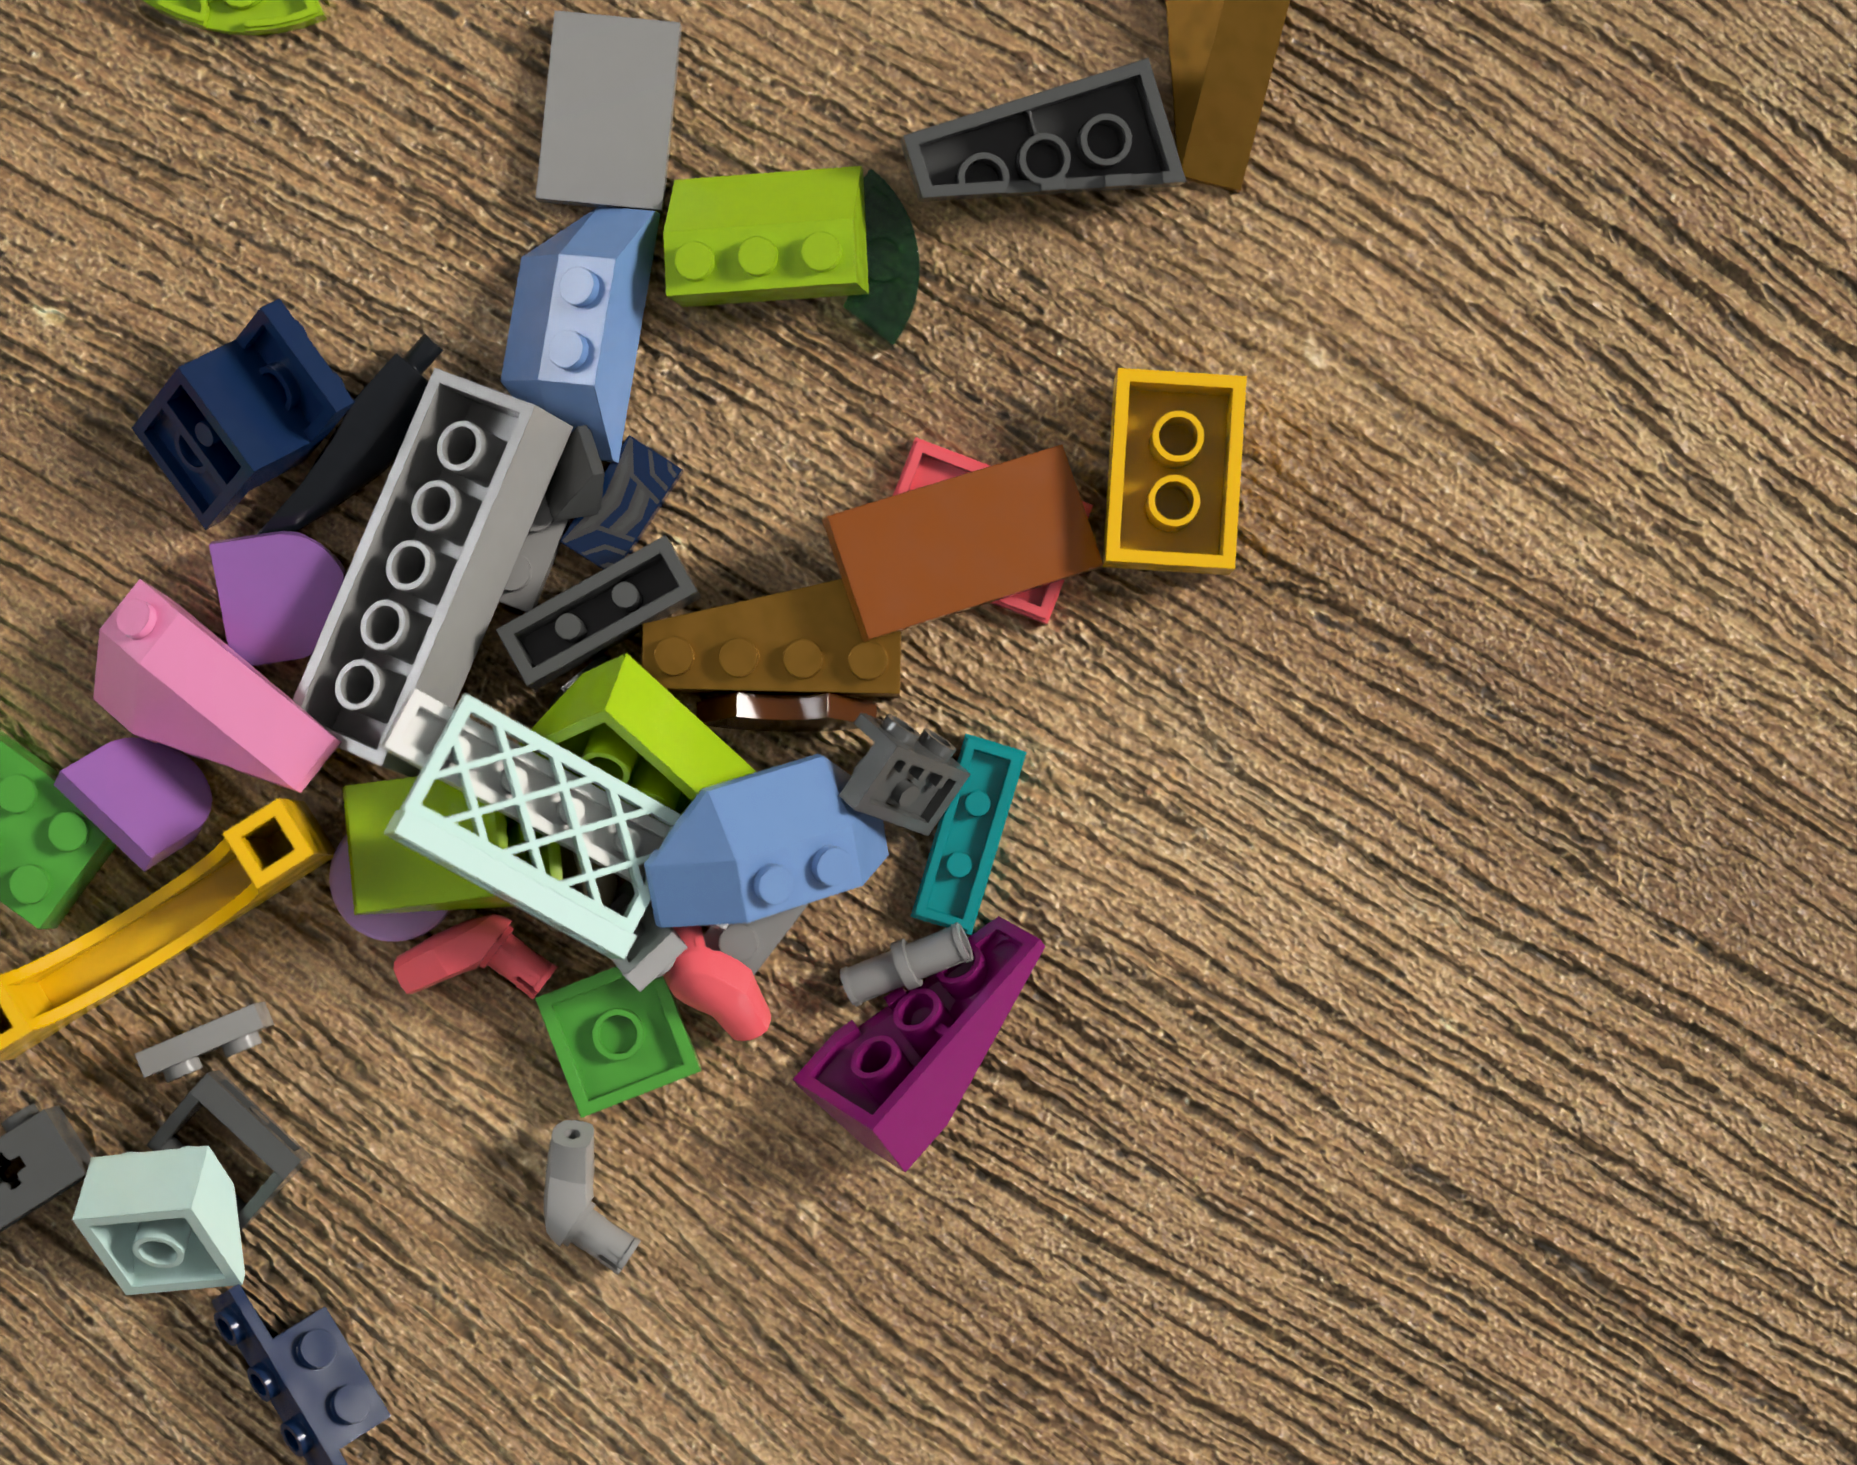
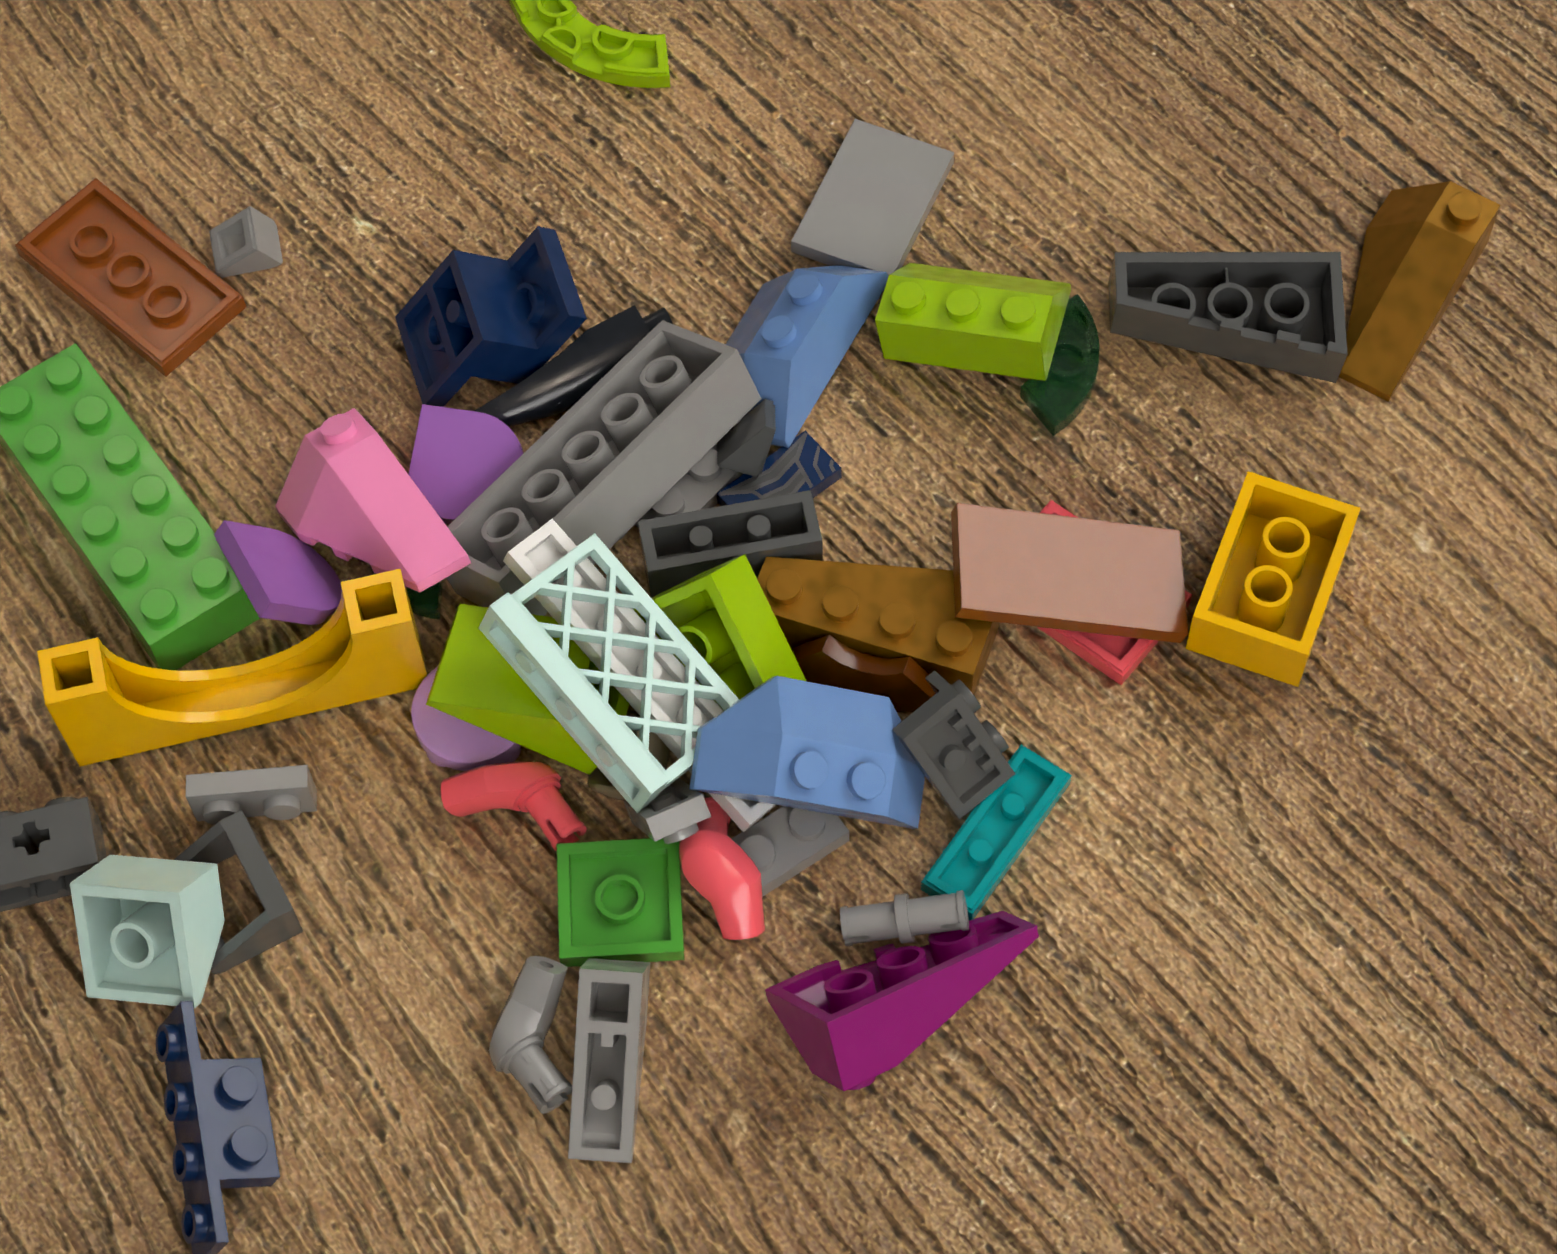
camera: 20 degrees right, 25 degrees down
(664, 1198) = (608, 1059): none -> light grey slope

